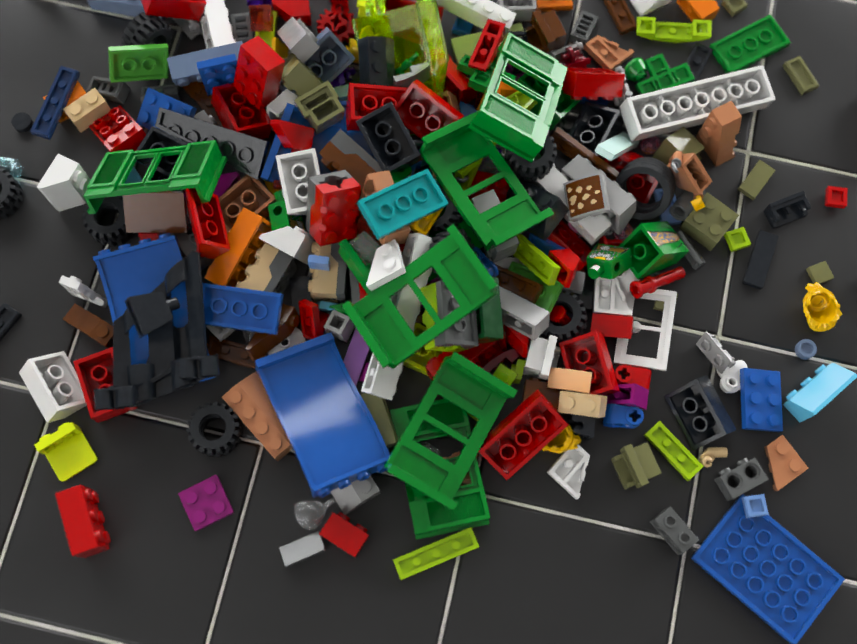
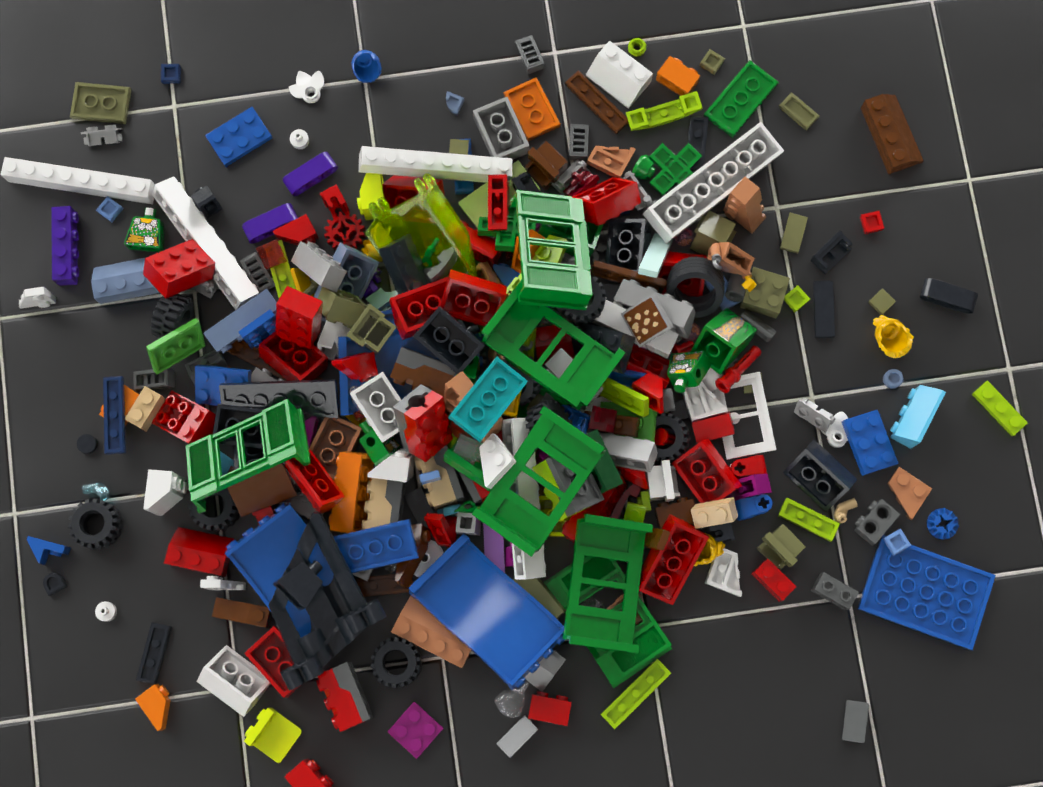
camera: 15 degrees left, 5 degrees up
(73, 254) = (198, 551): none -> red slope
(150, 441) = (344, 696): none -> piece
(508, 275) = (603, 419): none -> dark red panel
(515, 406) = (656, 539): none -> reddish brown tile
(569, 380) = (694, 494): light nougat slope -> none
(616, 495) = (773, 580): none -> red brick
(802, 514) = (940, 532): none -> blue gear

